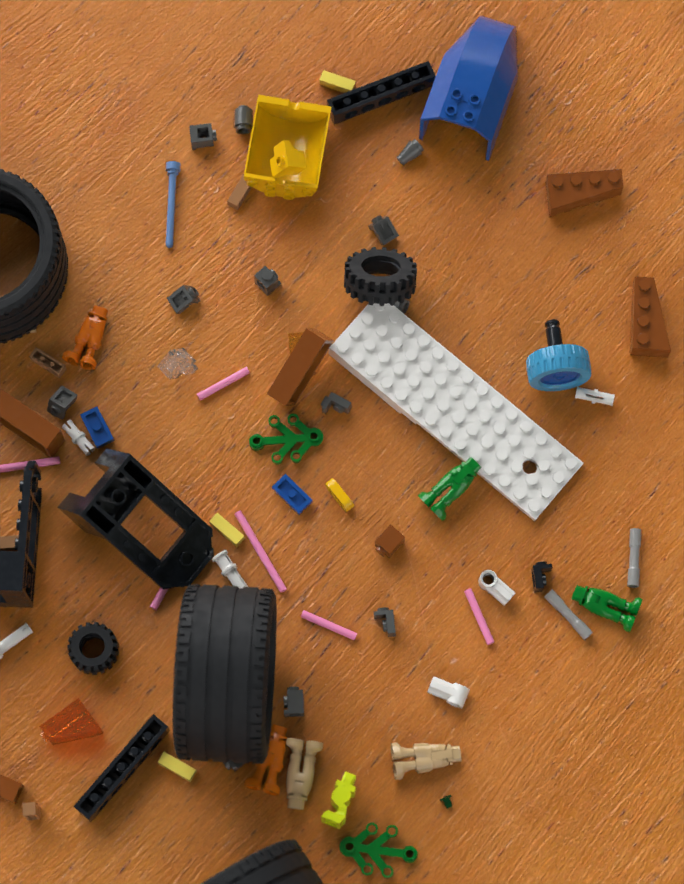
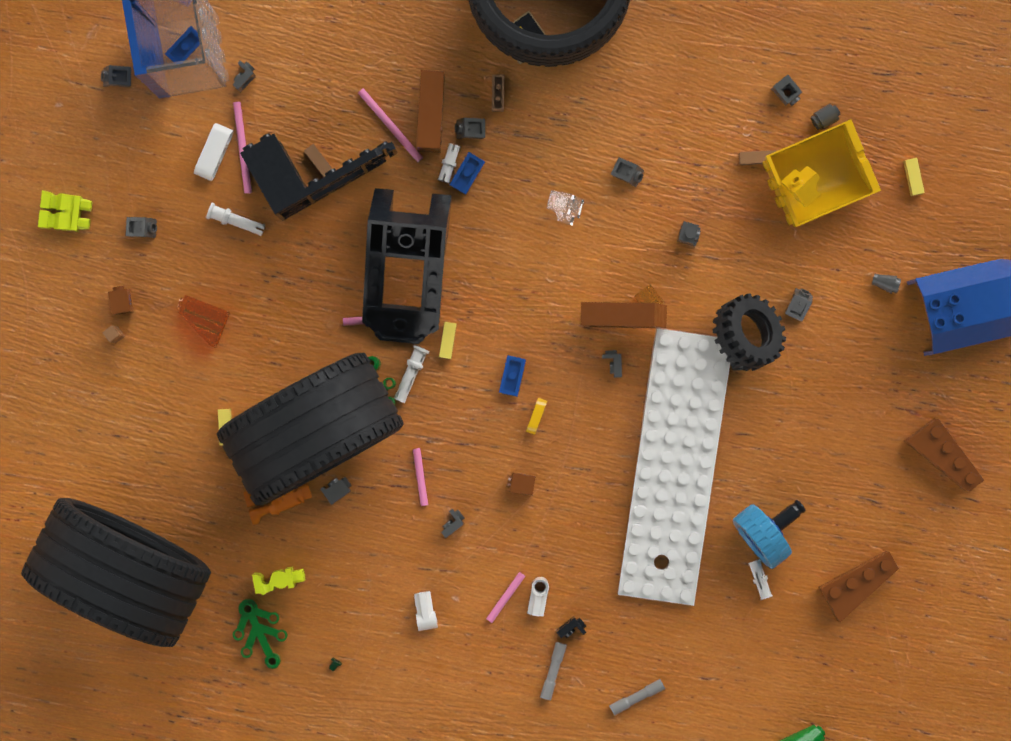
camera: 55 degrees right, 15 degrees up
(88, 632) = (262, 288): black tyre -> none
(91, 335) = (545, 114): orange piece -> none
(122, 768) = (194, 384): black brick -> none
(172, 170) = (739, 85): medium blue piece -> none
(223, 383) = (573, 254): bright pink bar -> none
(260, 551) = (447, 380): bright pink axle -> none
(289, 439) = (559, 343): green plant -> none
(300, 783) = (273, 534): tan piece -> none
(381, 92) = (927, 223): black brick -> none
(426, 757) = (359, 626): tan piece -> none
(459, 479) = (611, 509): green piece -> none
(597, 600) = (580, 688): green piece -> none

